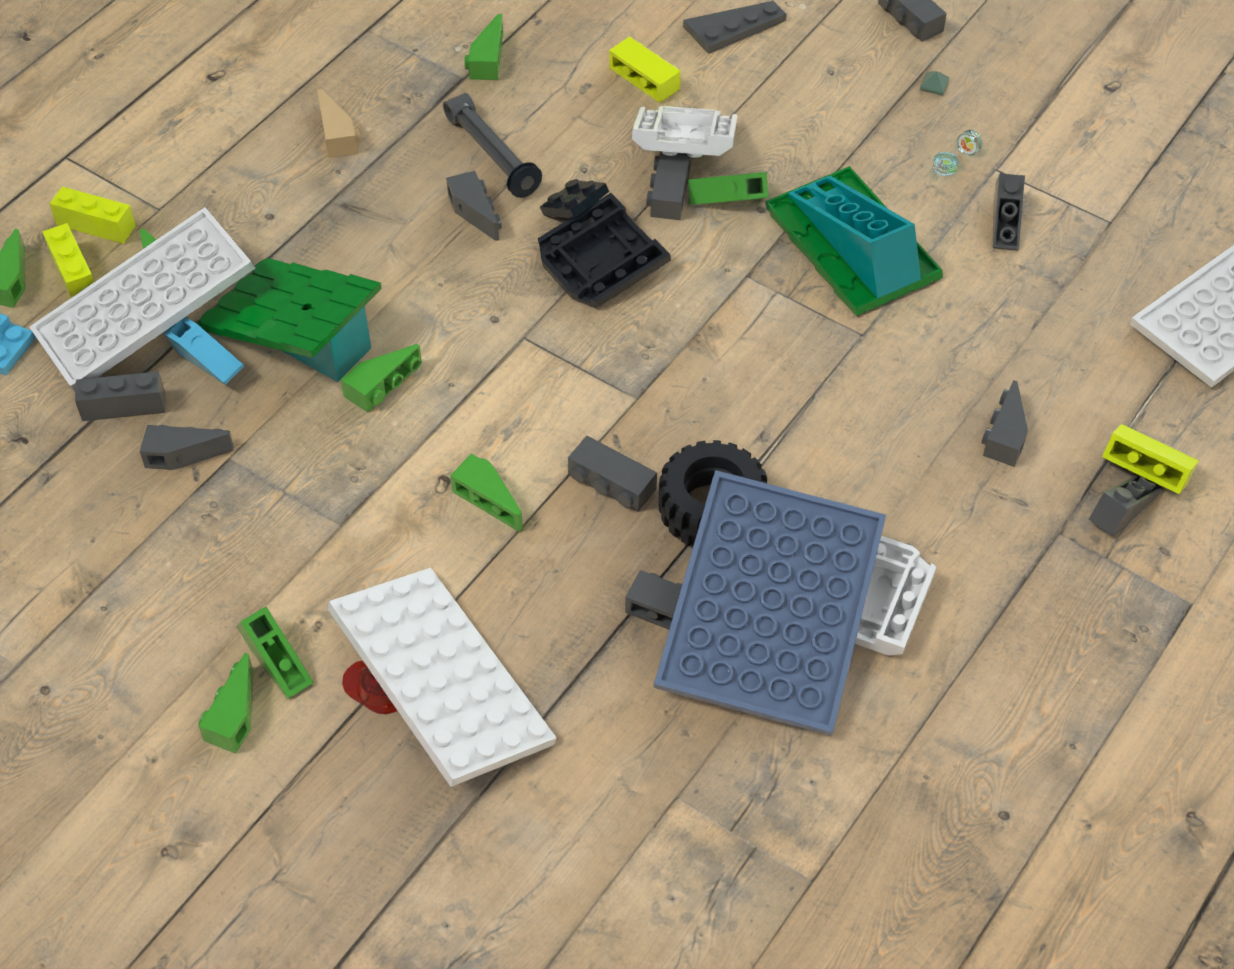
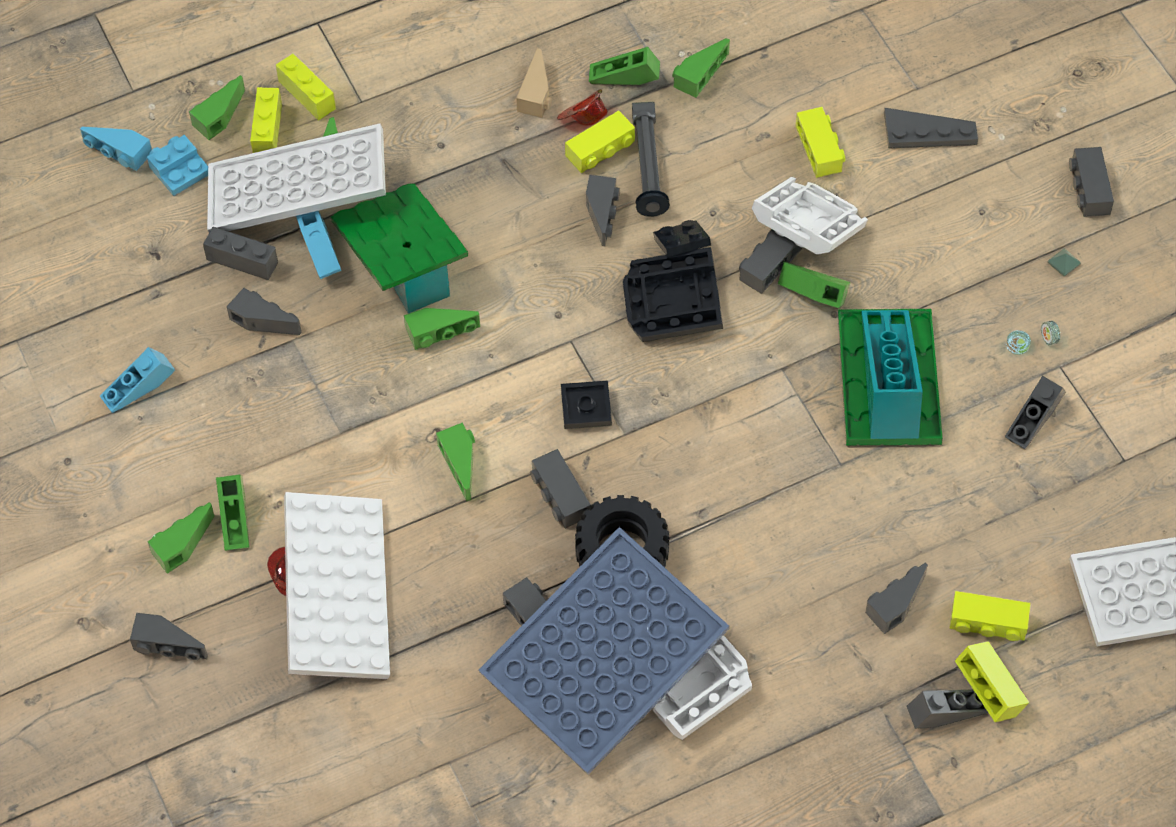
camera: 30 degrees right, 5 degrees up
(79, 569) = (138, 379): none -> medium azure slope
(281, 819) = (161, 636): none -> dark grey slope
(402, 127) = (587, 111): none -> clear red piece
(416, 77) = (627, 69): none -> bright green slope
(433, 149) = (600, 142): none -> neon yellow brick
(582, 386) = (586, 404): none -> black plate
(1101, 403) = (989, 616): none -> neon yellow brick

